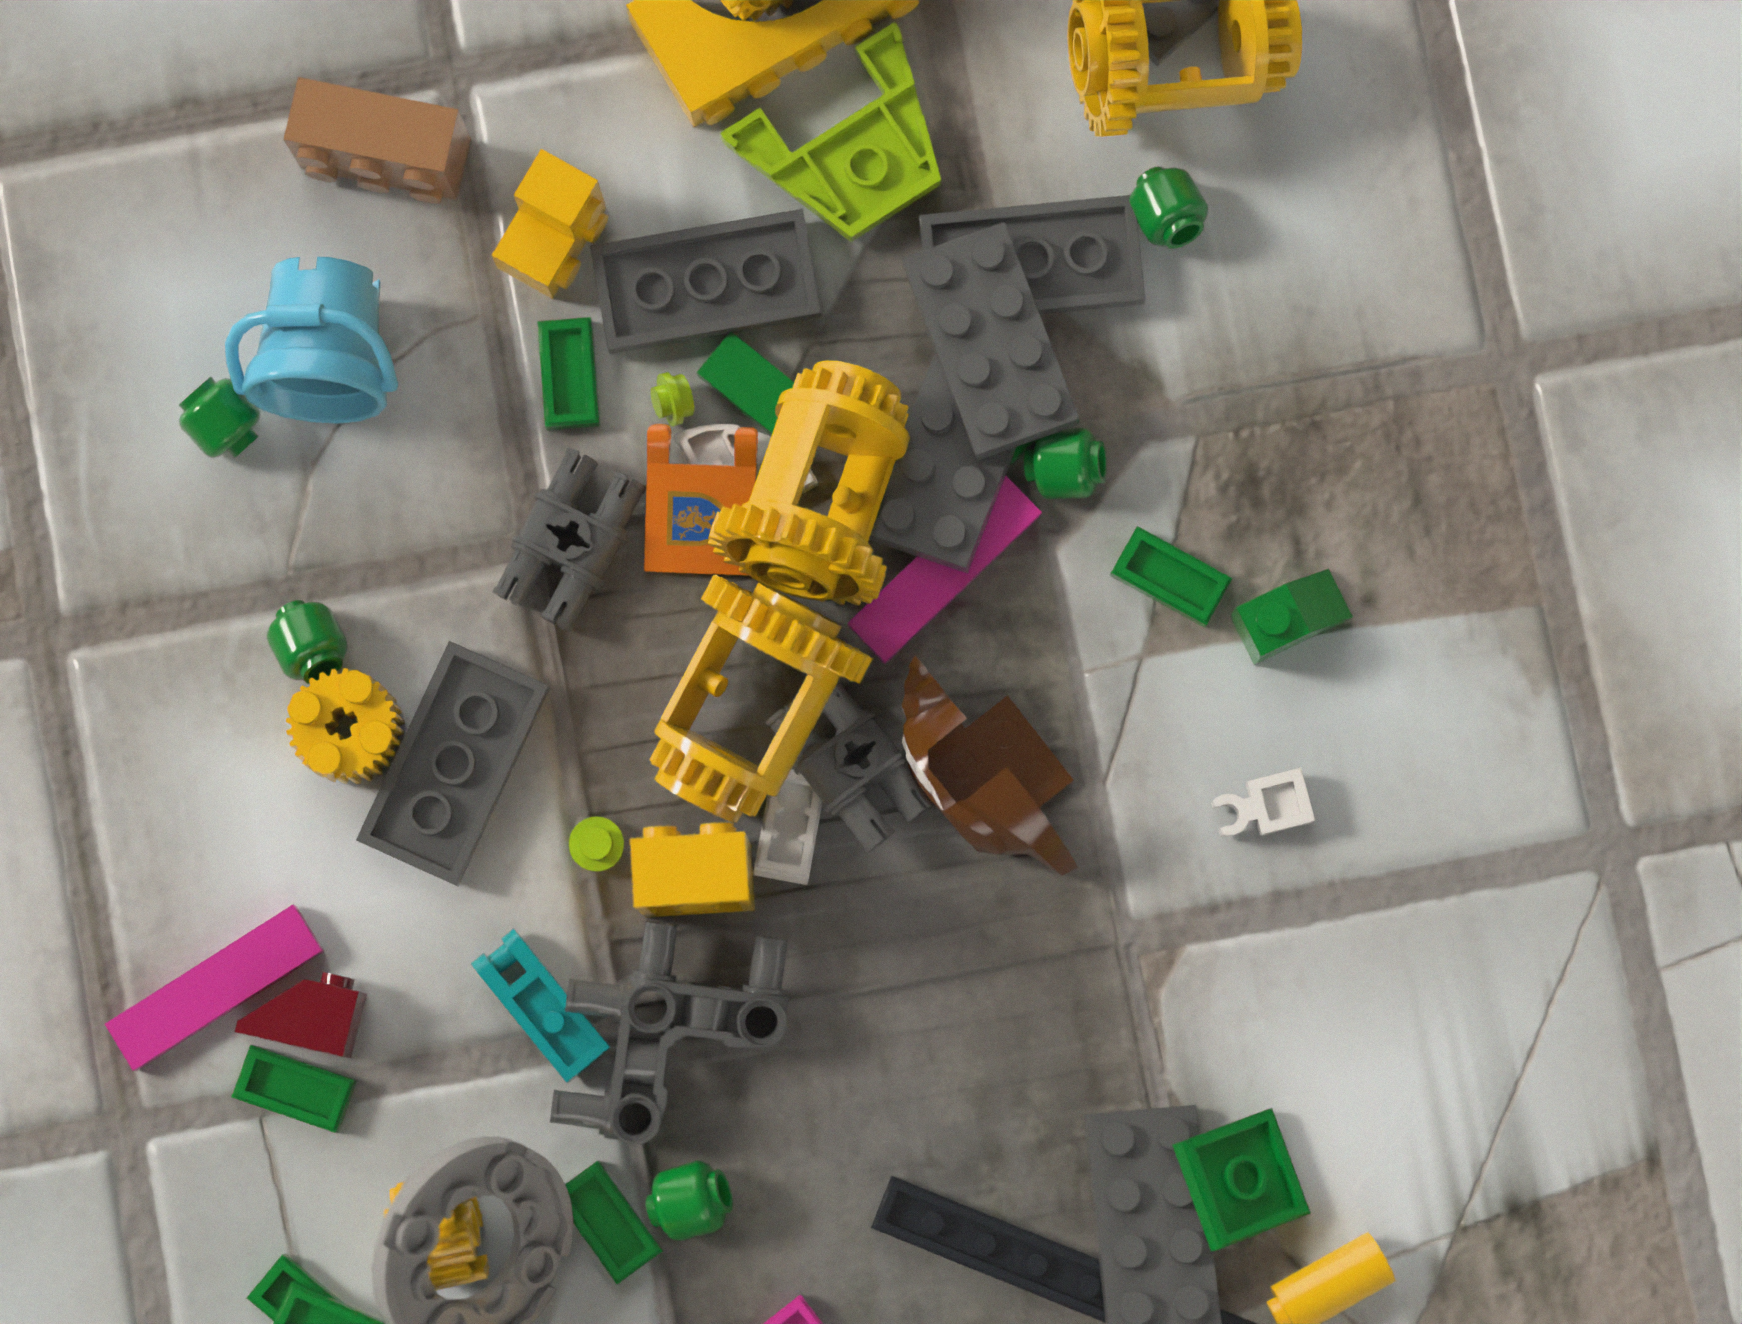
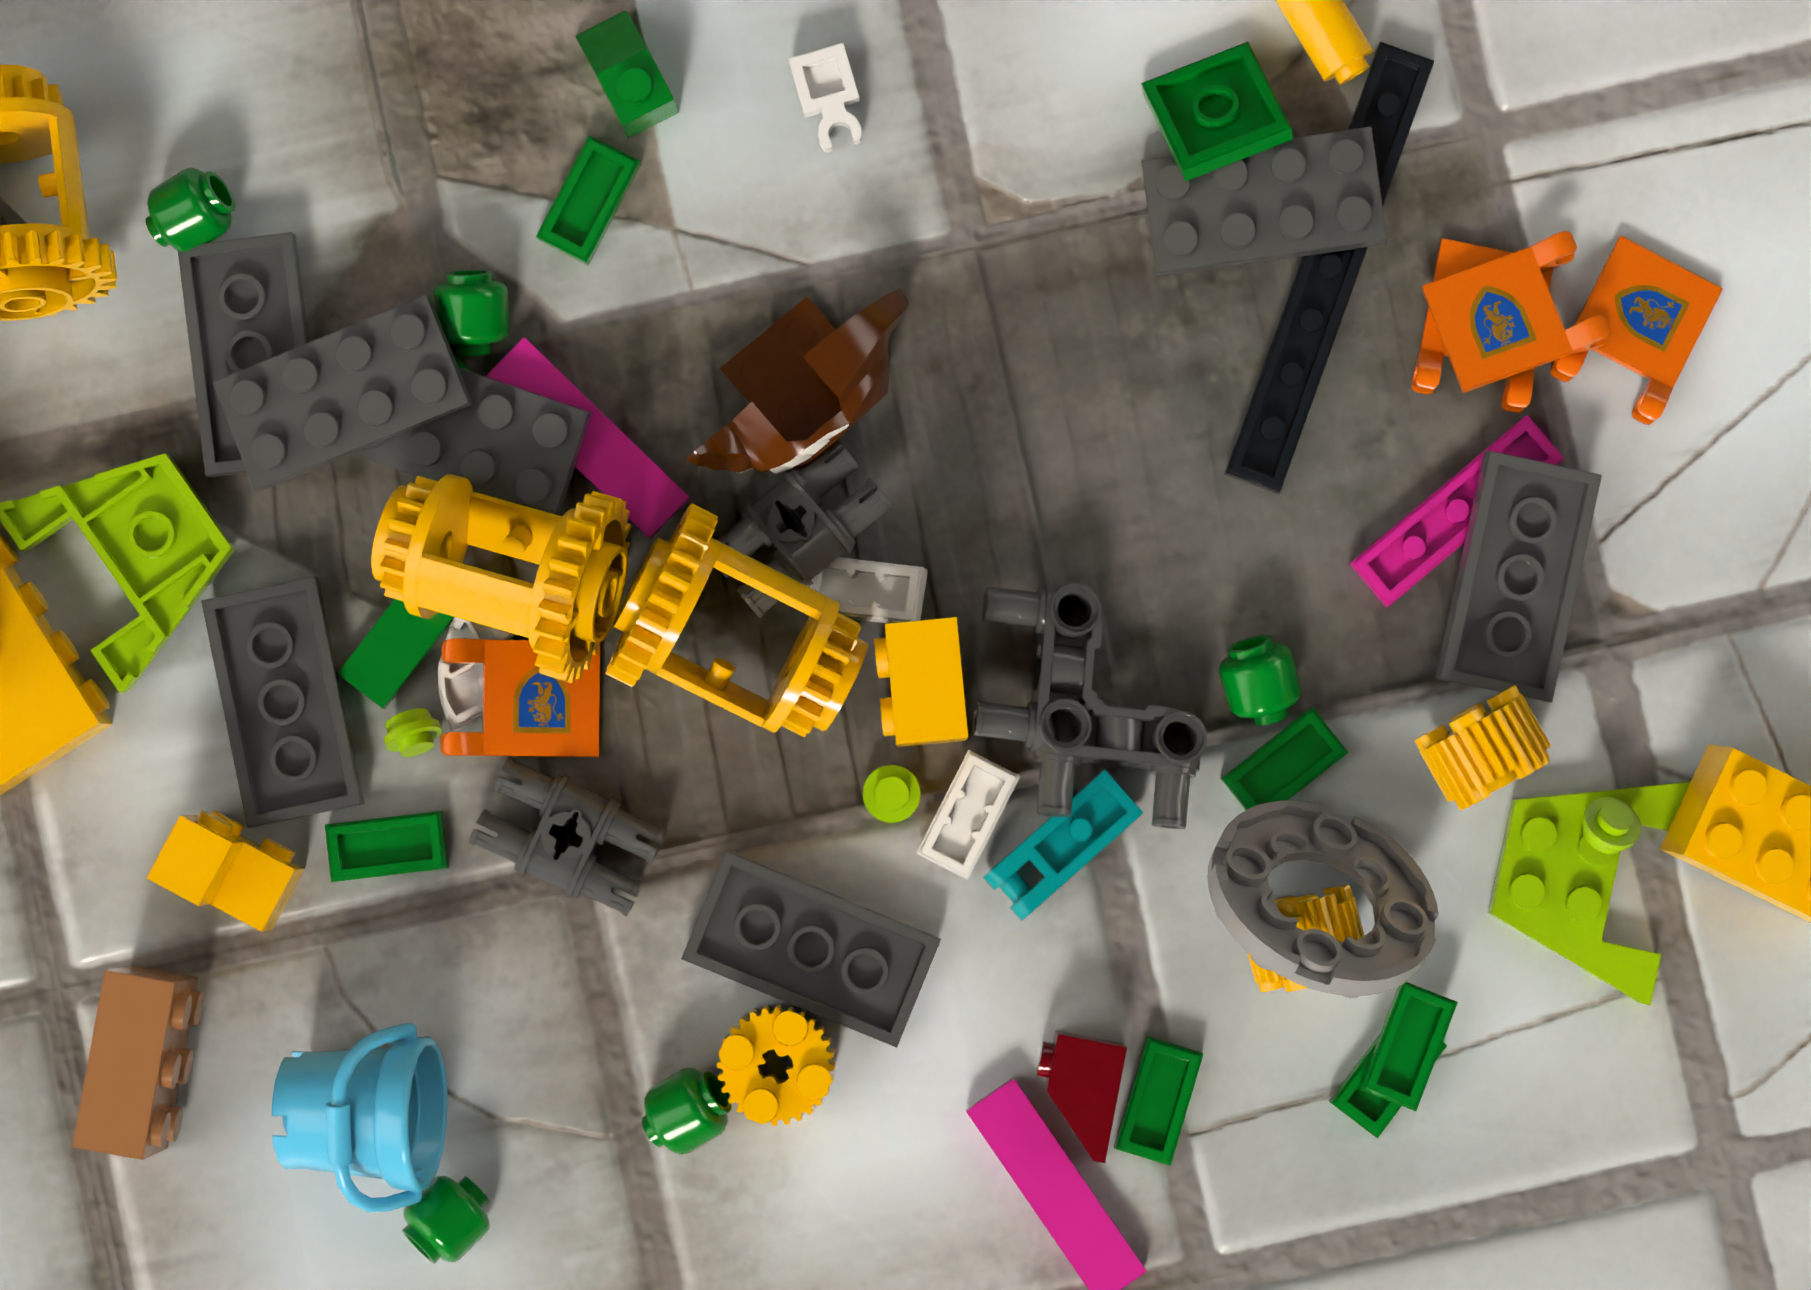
camera: 90 degrees left, 5 degrees up
(573, 915) = (968, 814): none -> white plate

